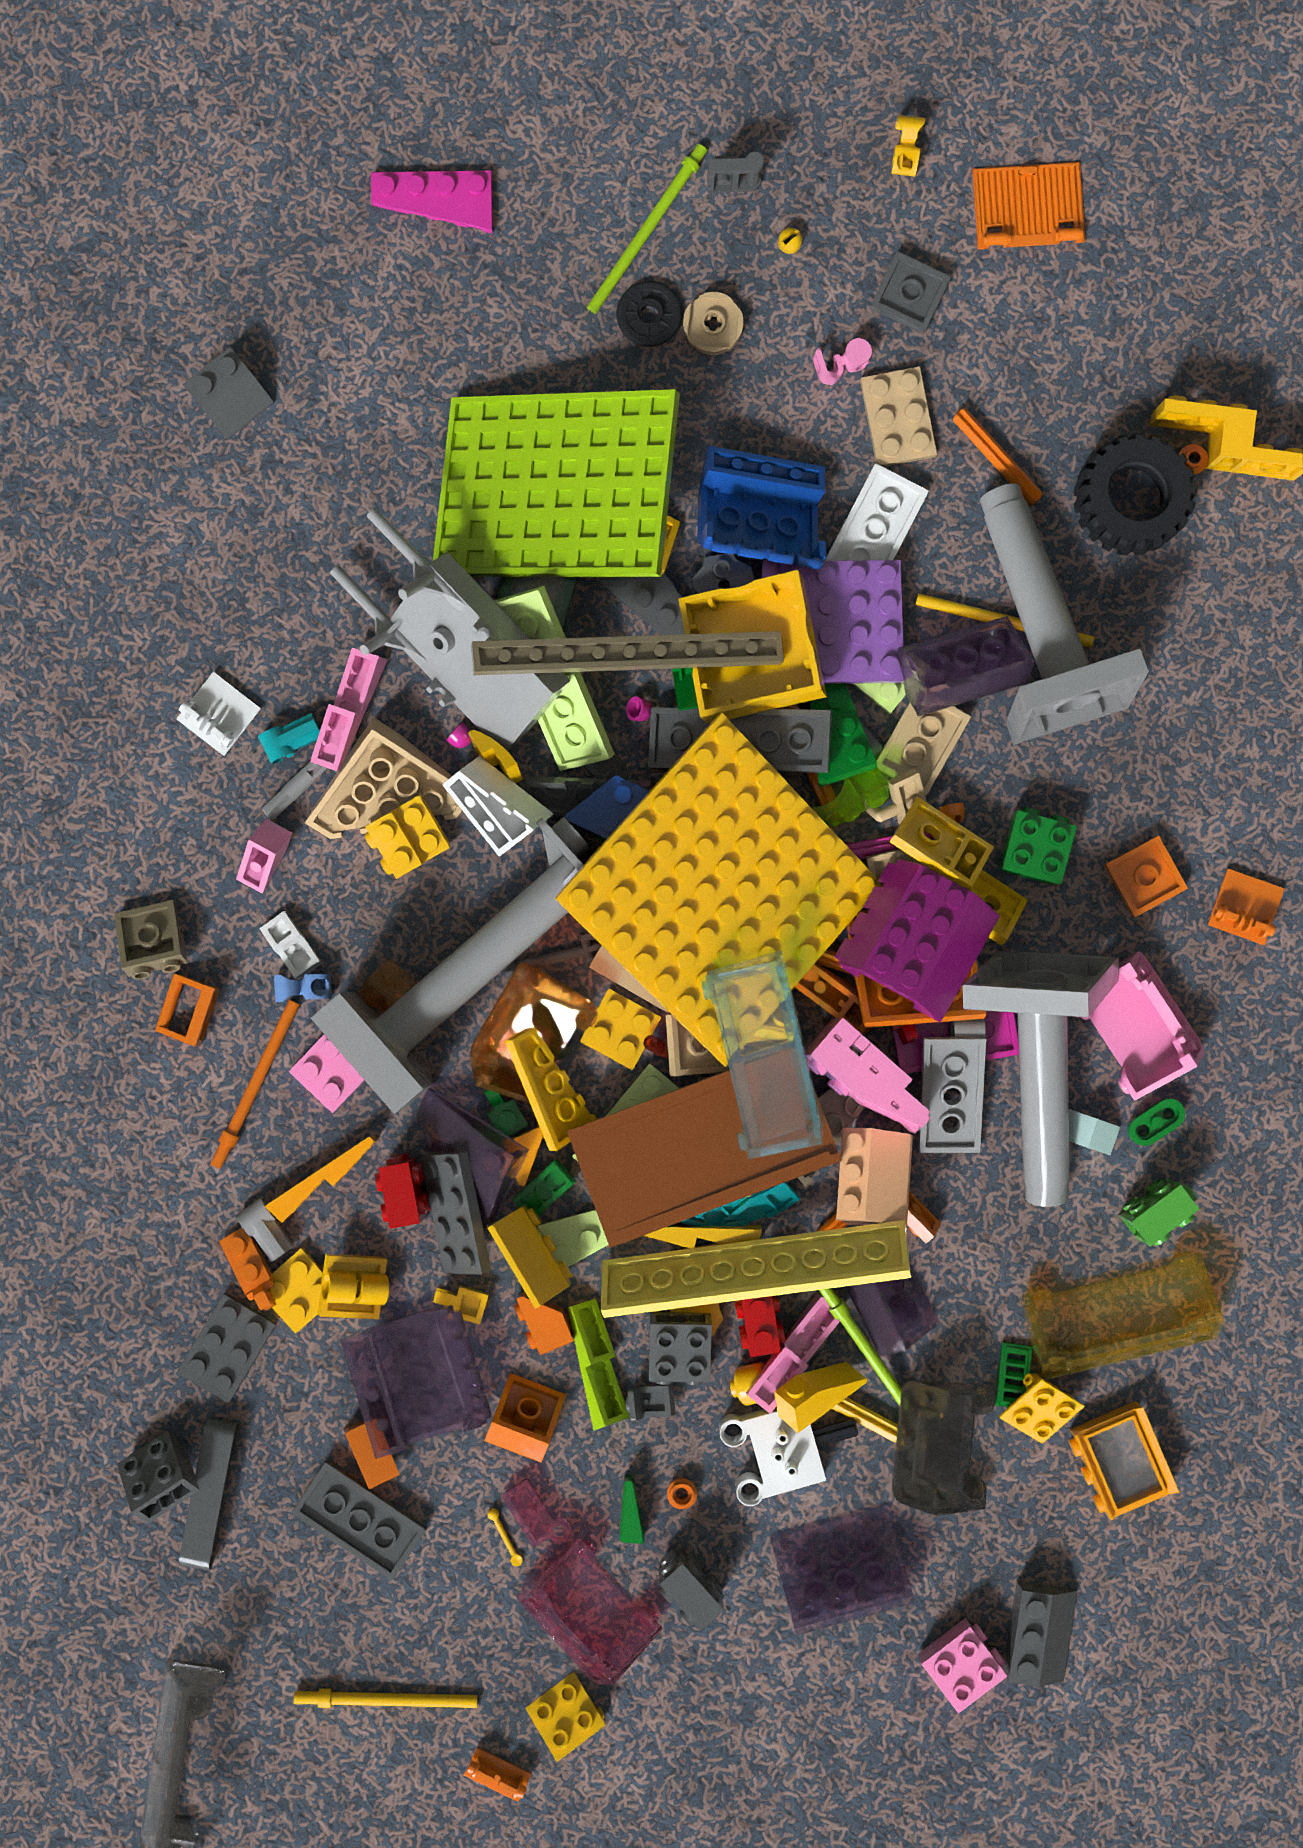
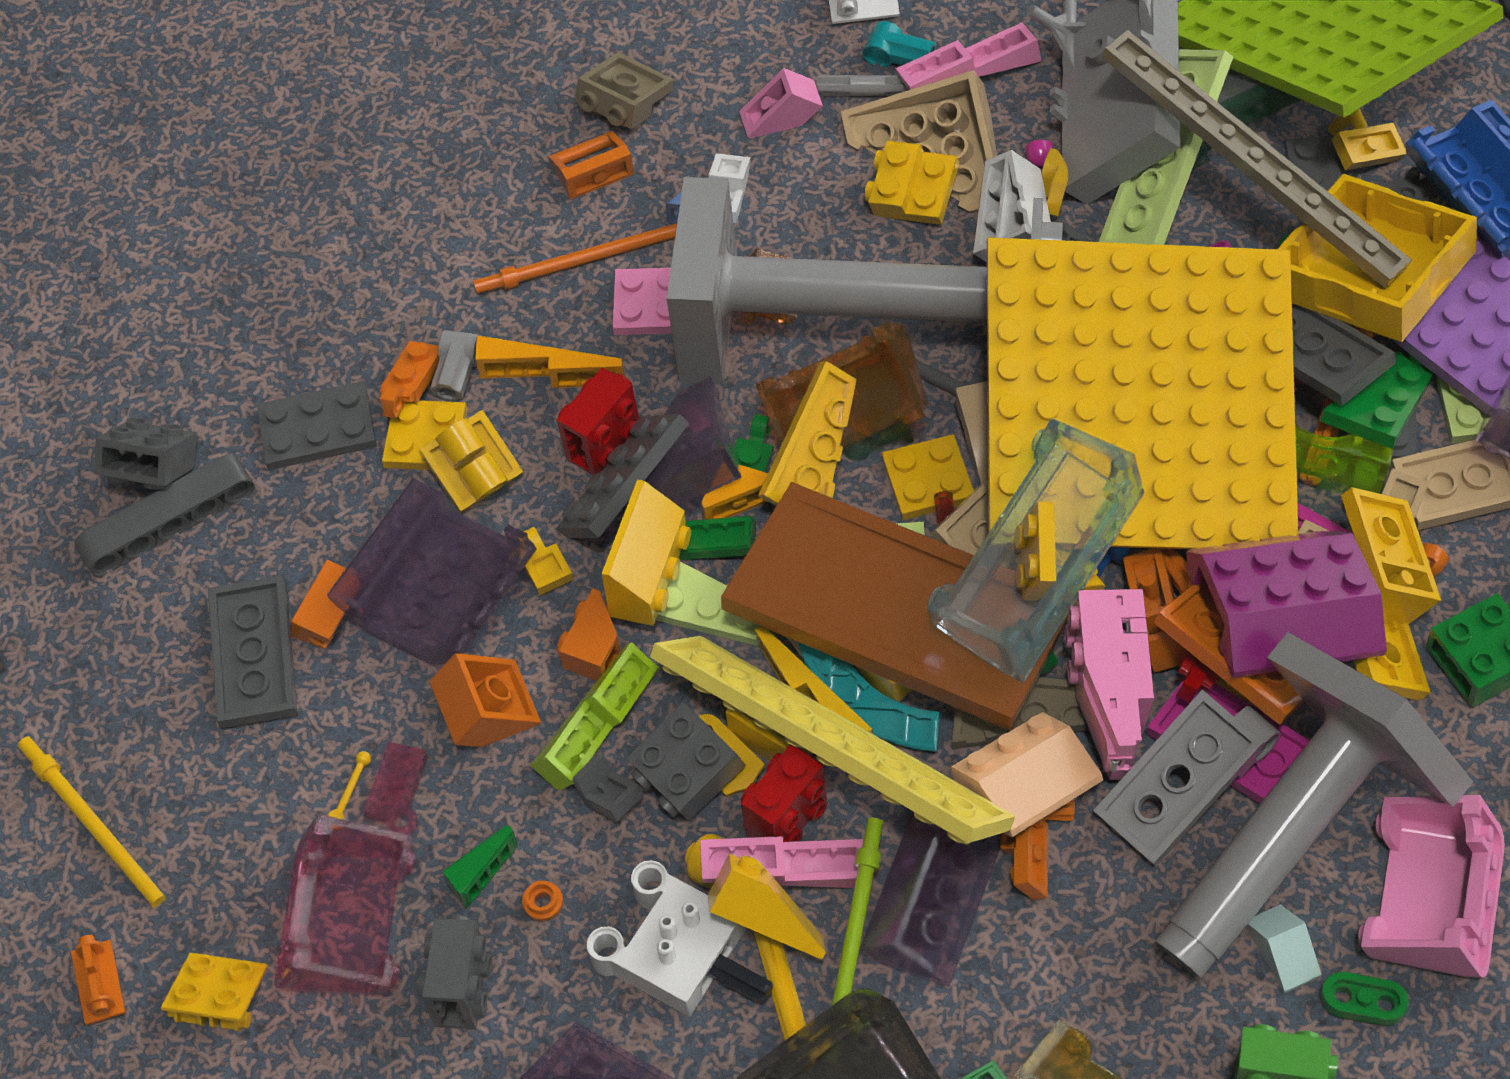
camera: 55 degrees right, 30 degrees down
(778, 1067) = (1038, 551): none -> yellow plate

